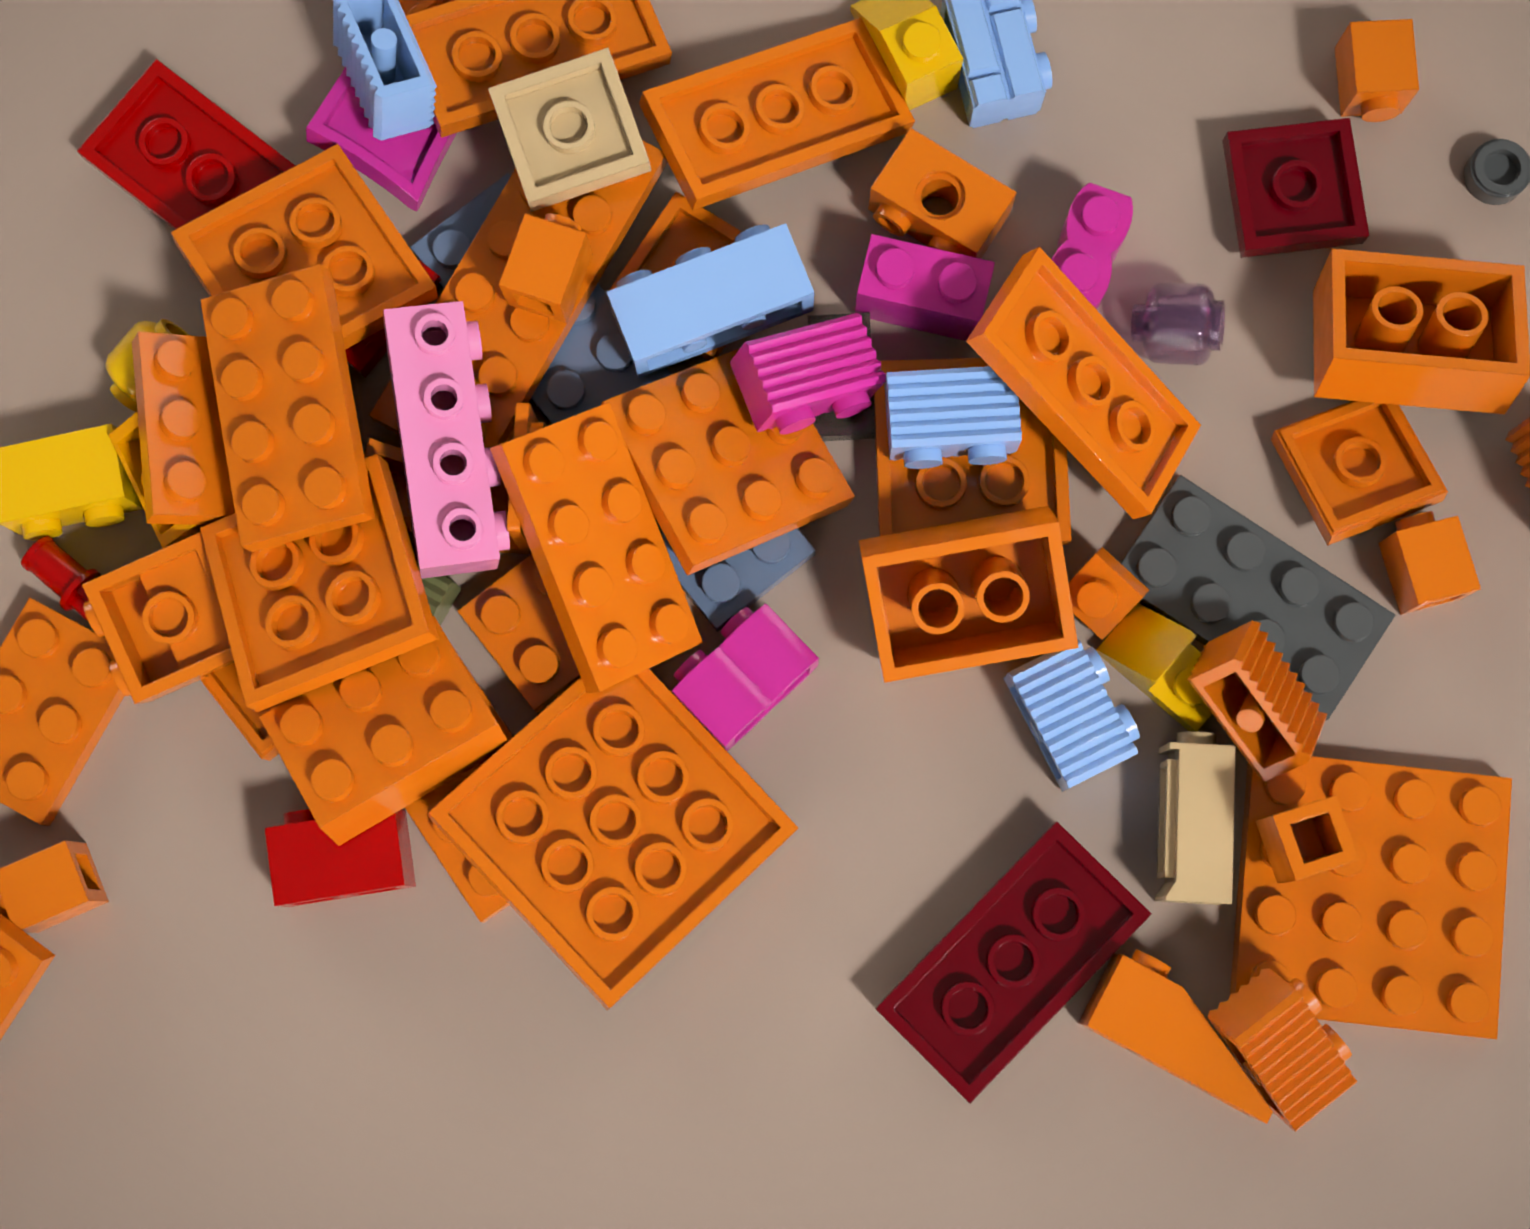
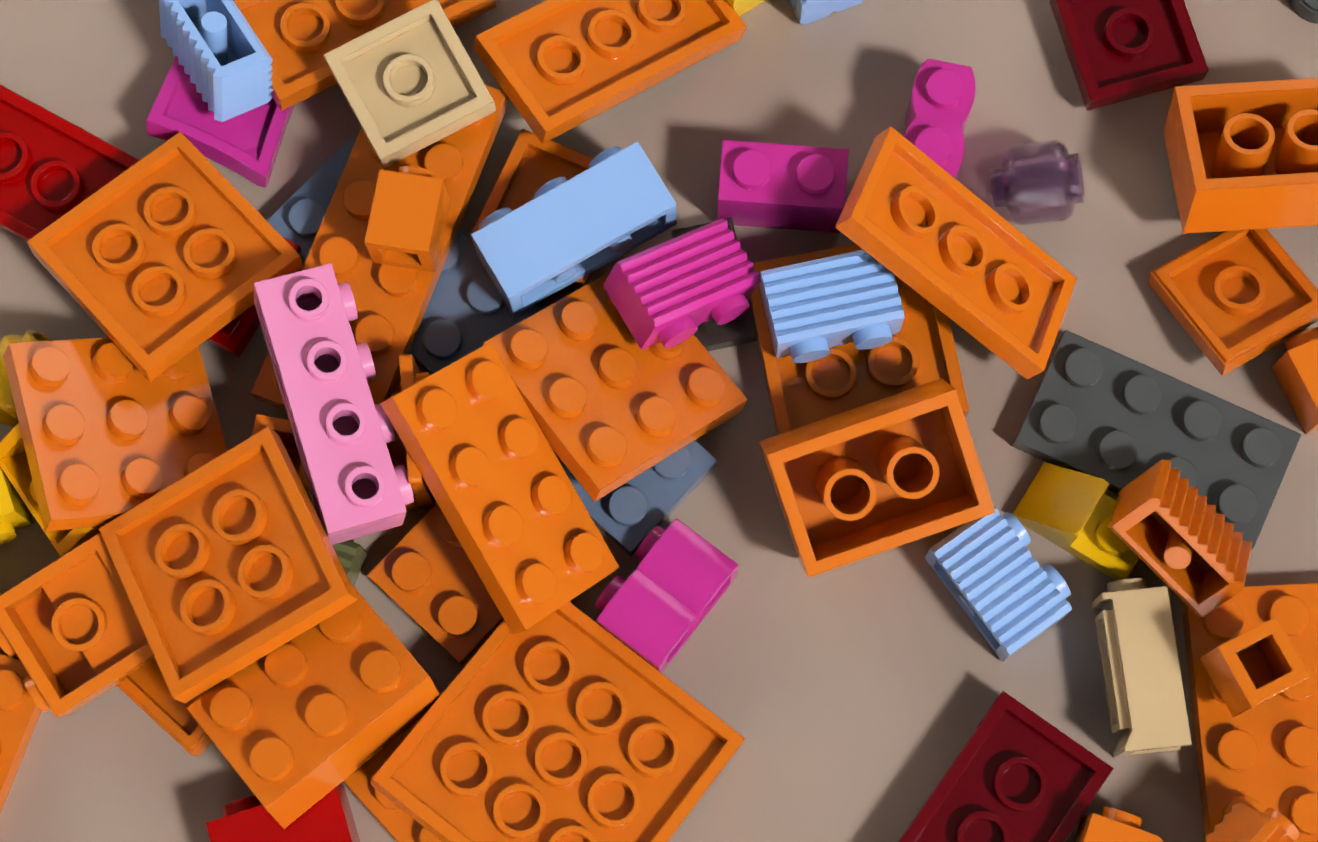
camera: 10 degrees left, 5 degrees down
(286, 409) = (171, 396): orange plate -> none
(928, 170) = (768, 71): orange brick -> none
(1104, 593) = (1011, 456): orange plate -> none

